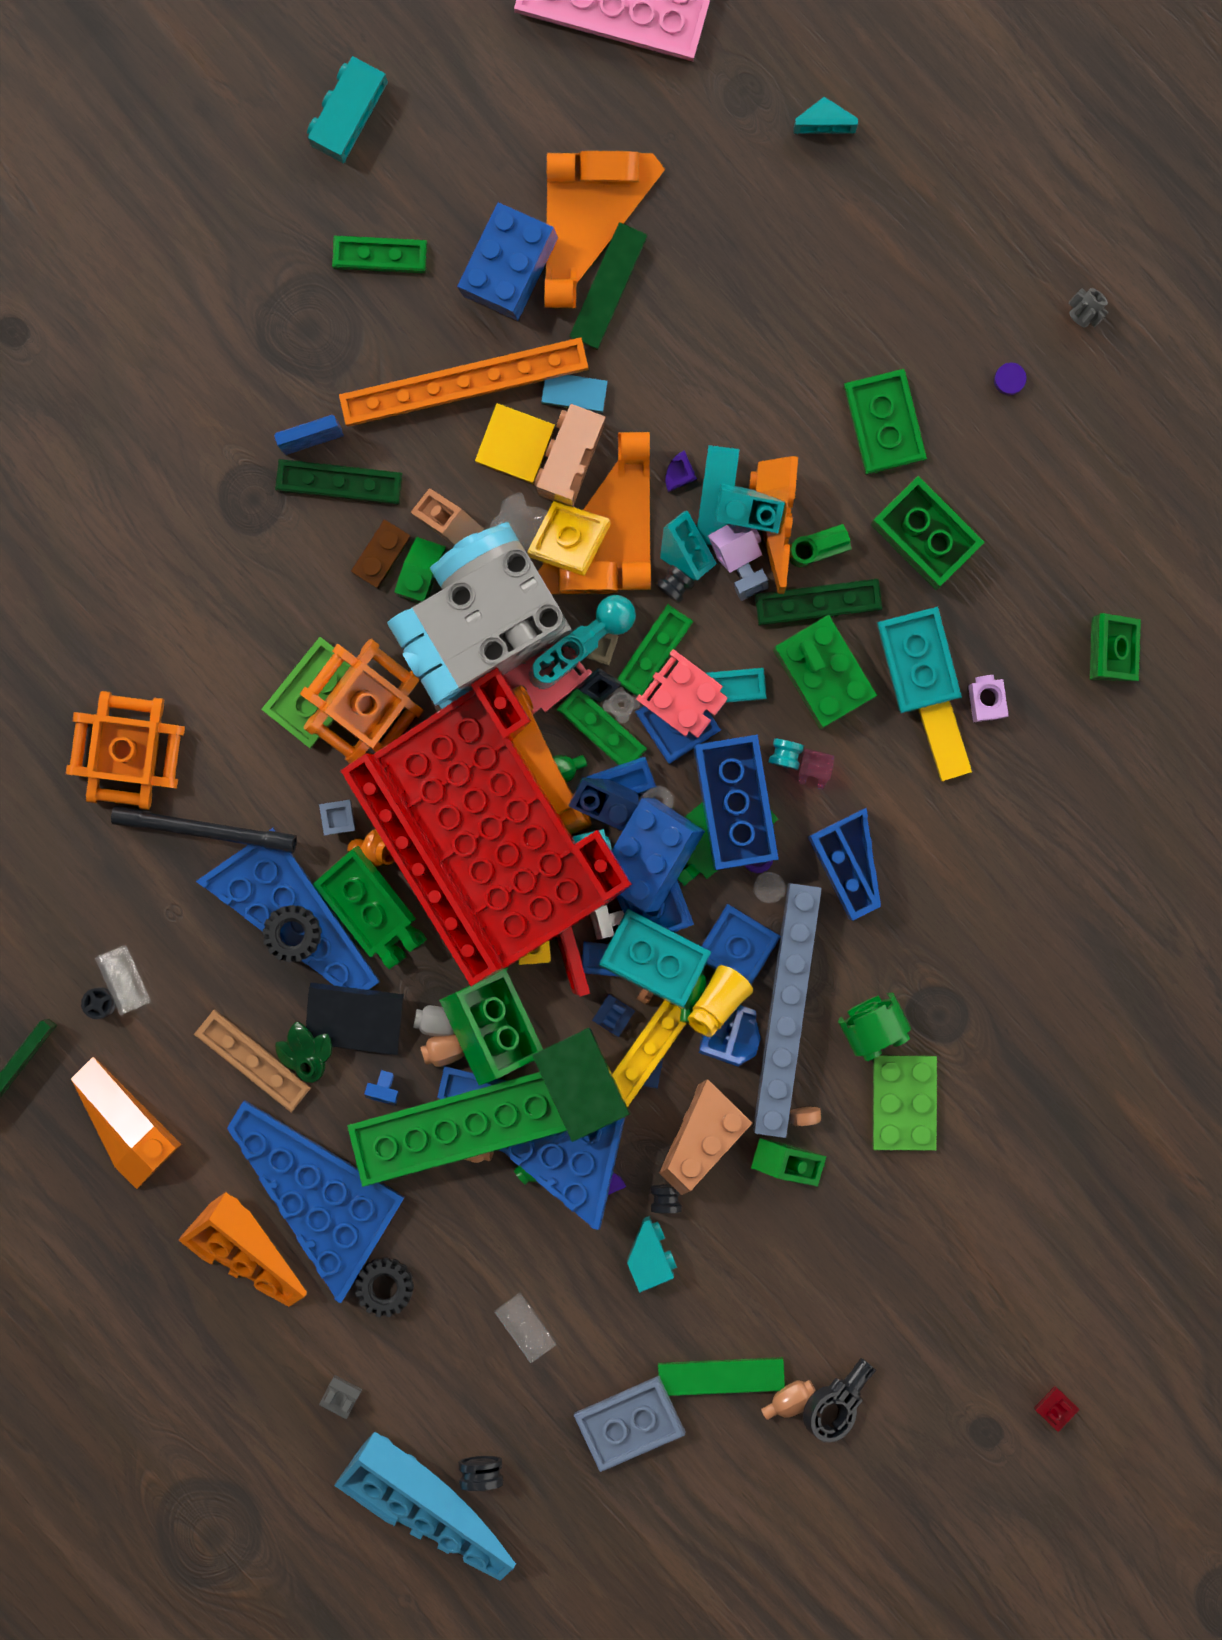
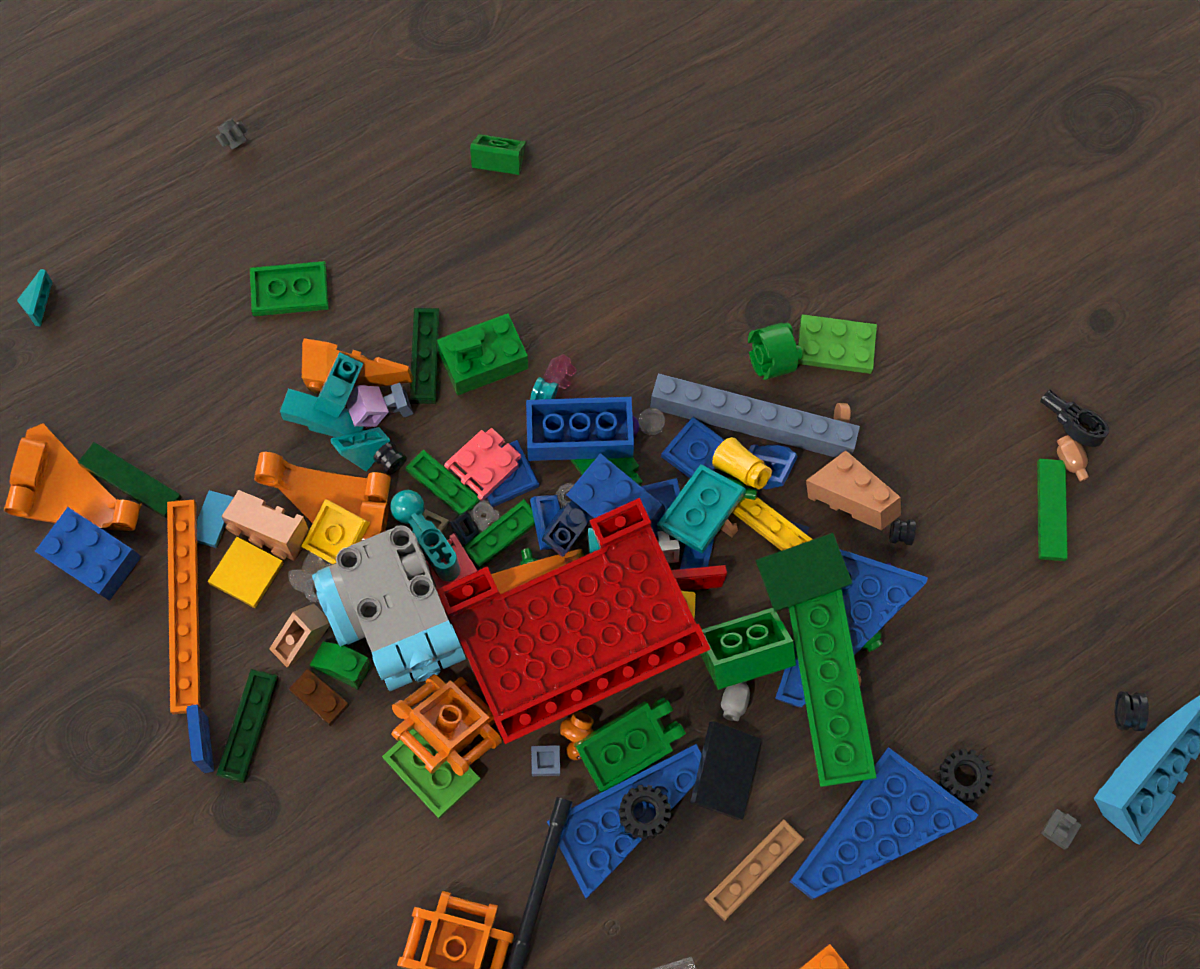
camera: 90 degrees left, 20 degrees down
(237, 1241) = (916, 903): orange wedge -> none
(303, 1049) = (747, 819): dark green plate -> none
(379, 254) = (55, 664): green tile -> none
(382, 1091) = (791, 753): blue tile -> none
(442, 1050) = (761, 697): nougat plant -> none
(525, 1327) = (1005, 660): clear plate -> none
(613, 1015) = (744, 555): dark blue tile -> none
(629, 1423) = (1090, 585): sand blue tile -> none
(647, 1257) = (950, 552): teal slope -> none
(679, 472) = (297, 445): dark purple tile -> none
(741, 684) = (482, 417): teal tile -> none
(788, 1162) = (878, 434): green slope -> none
(821, 545) = (378, 340): green piece -> none
(849, 863) = (640, 355): blue wedge -> none
(919, 659) = (484, 285): teal tile -> none
(927, 533) = (384, 264): green brick -> none
(945, 740) = (531, 280): yellow tile -> none
(979, 710) = (526, 250): lavender brick -> none
(1010, 379) = (274, 196): dark purple tile -> none
(1056, 1409) = (1084, 267): dark red tile -> none

